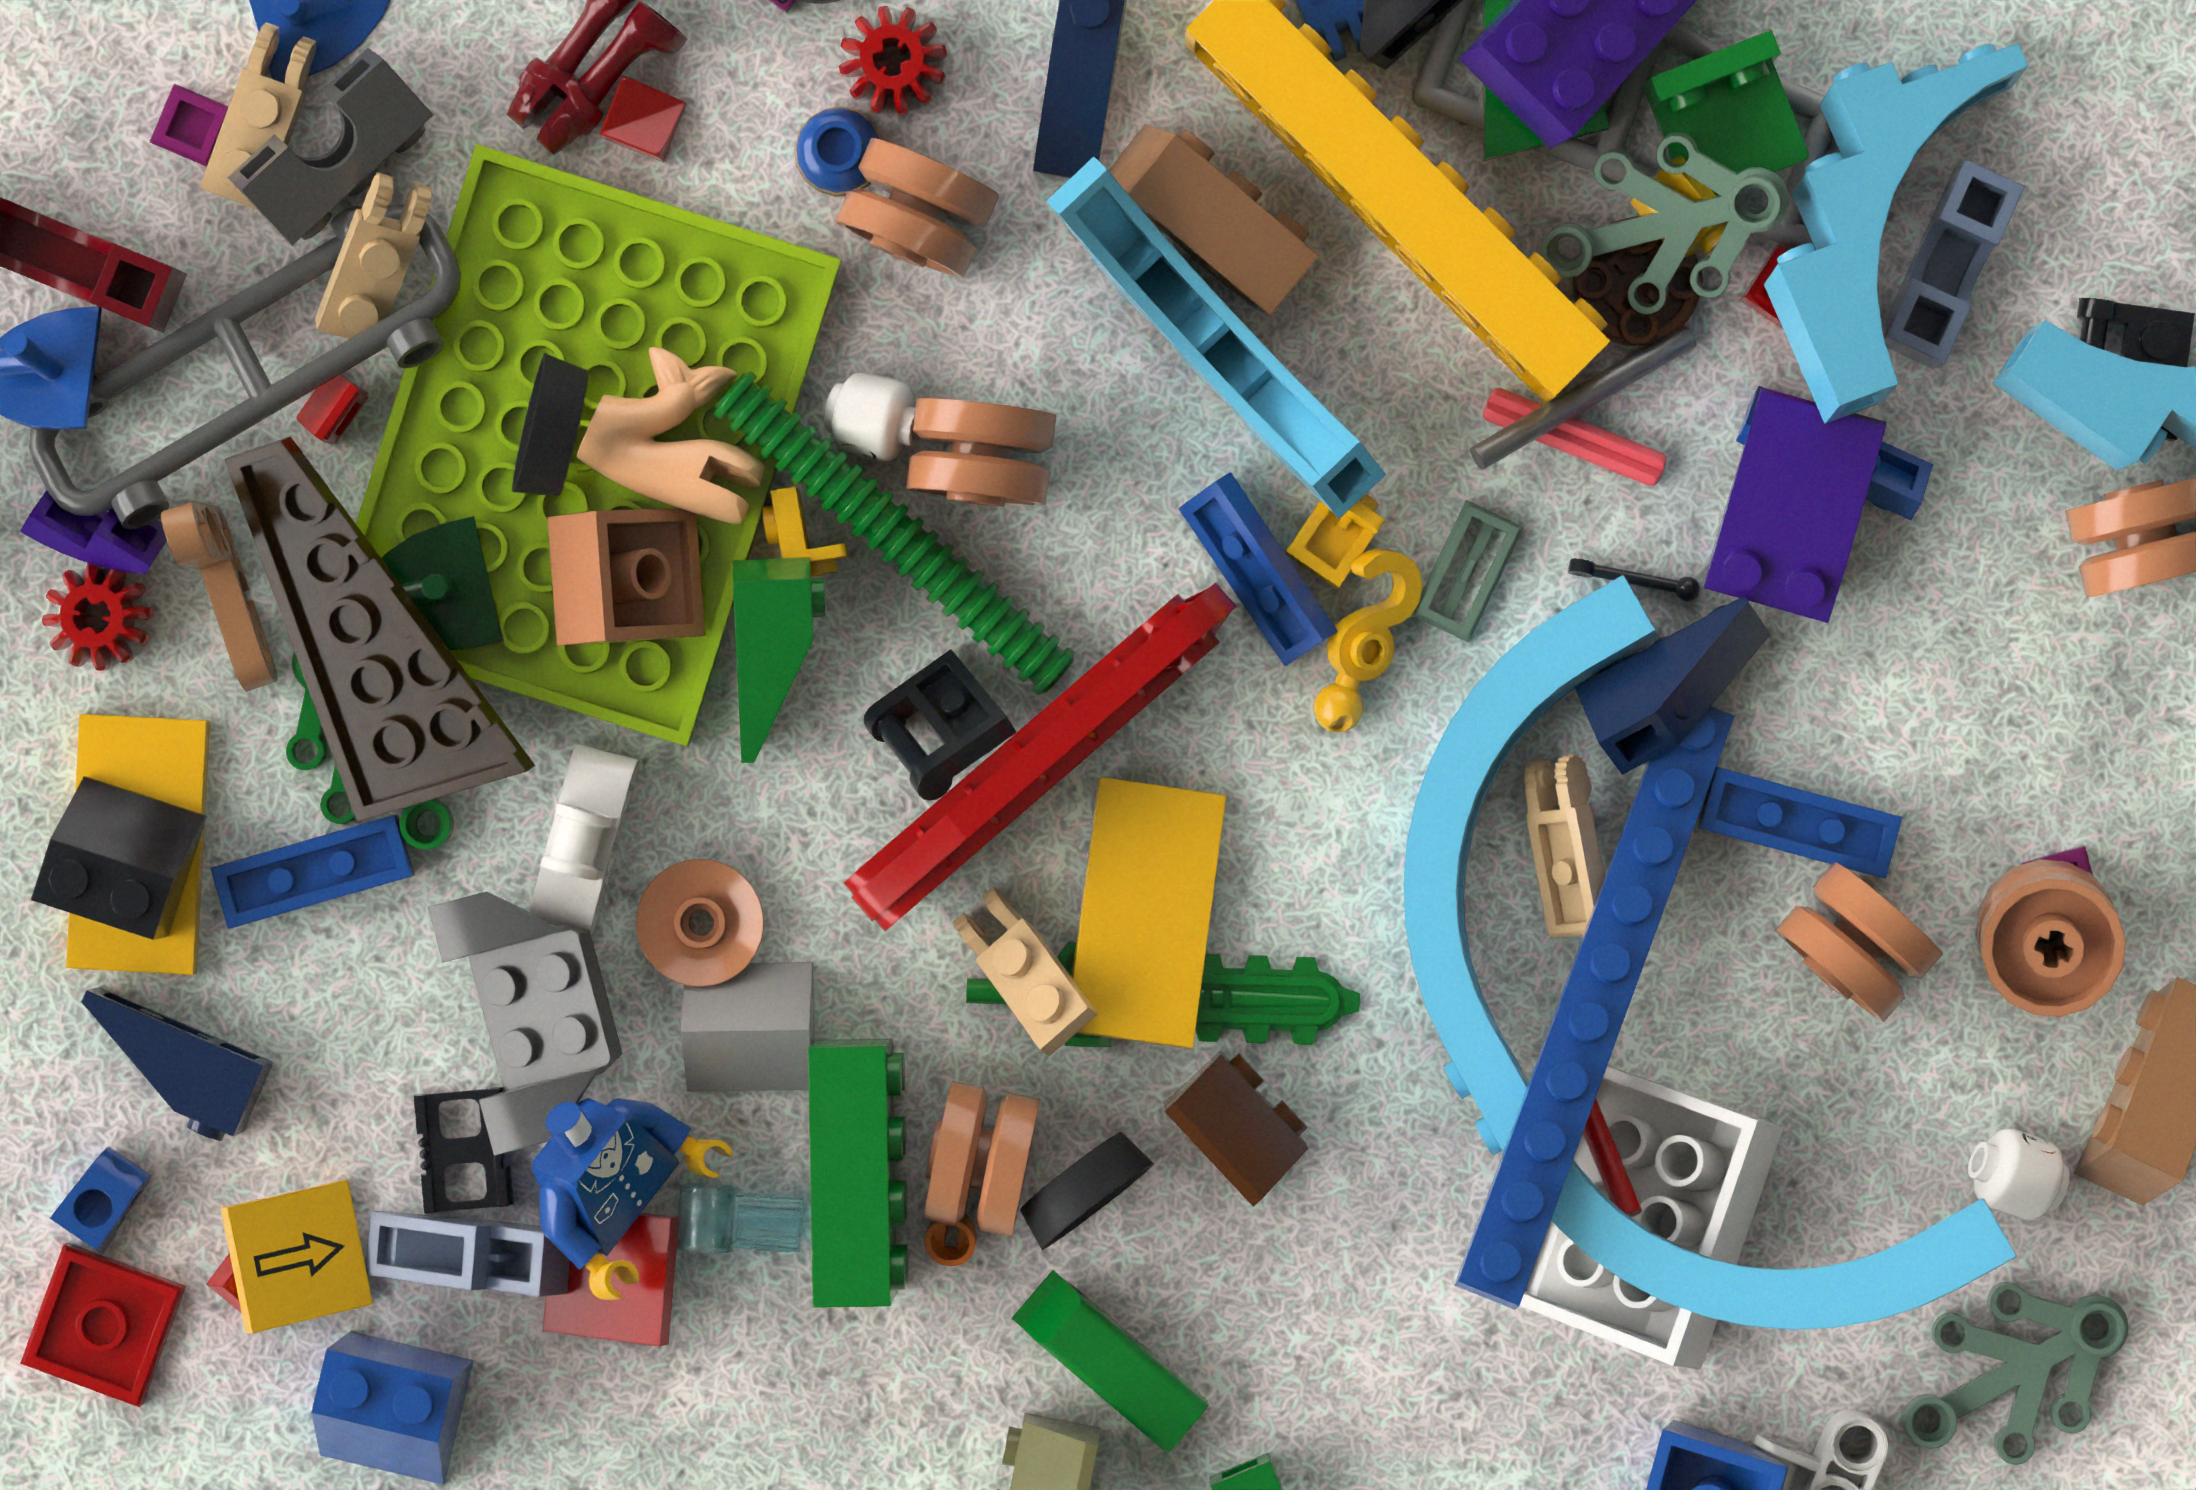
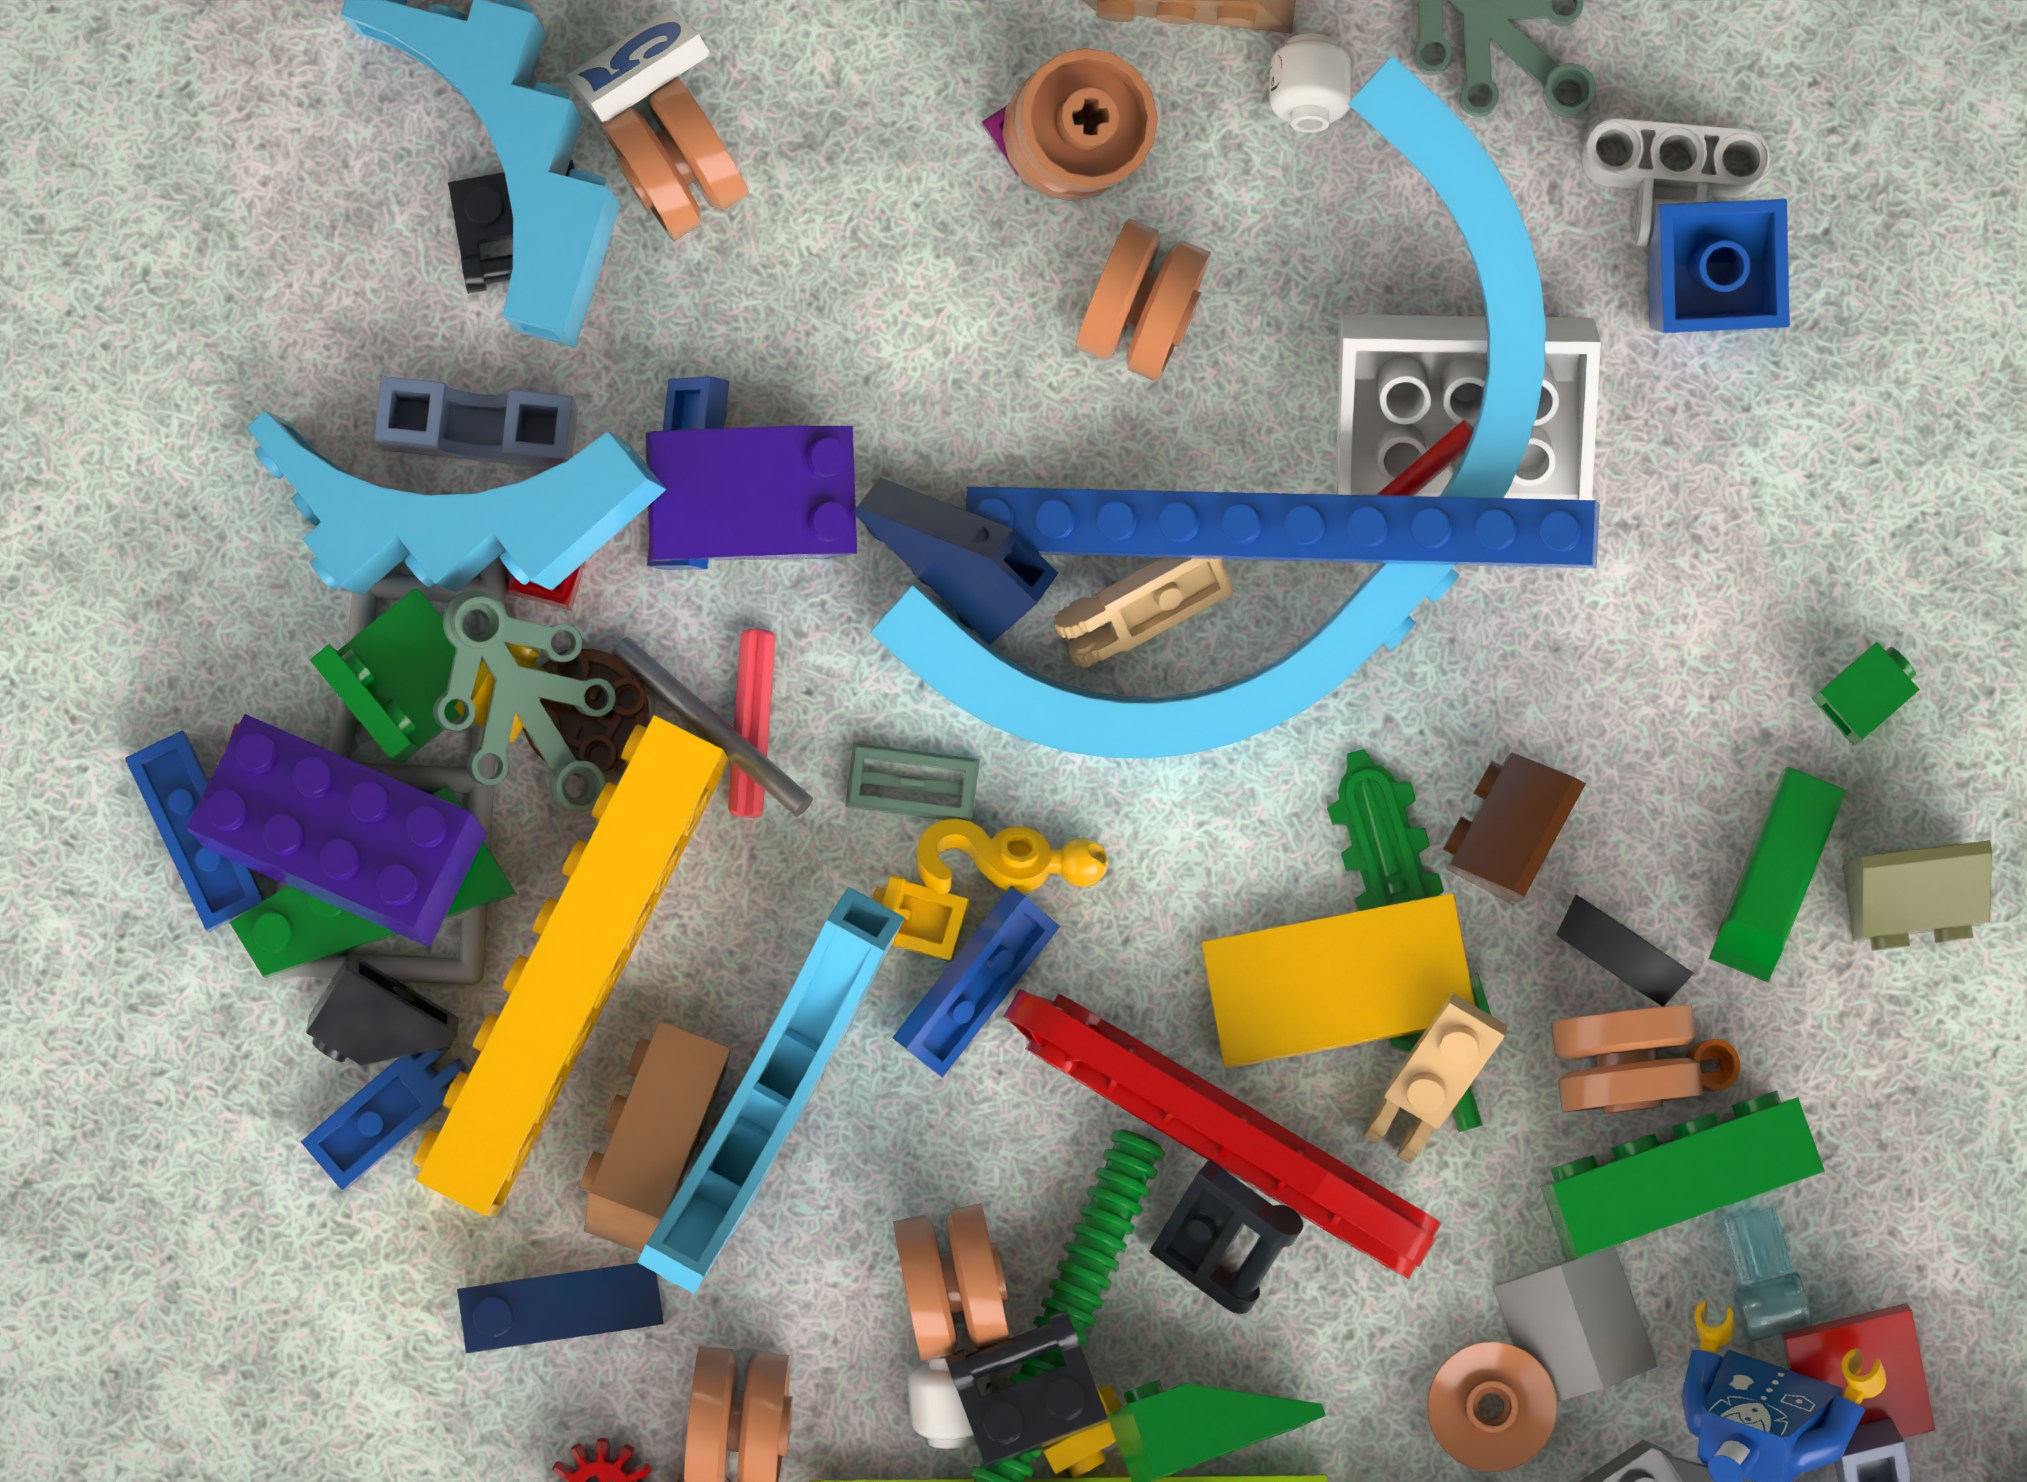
camera: 115 degrees left, 5 degrees down
(834, 488) = (1033, 1410): none -> black plate
(1685, 588) = (861, 571): black hinge -> none
(1800, 822) = (1047, 392): blue plate -> none

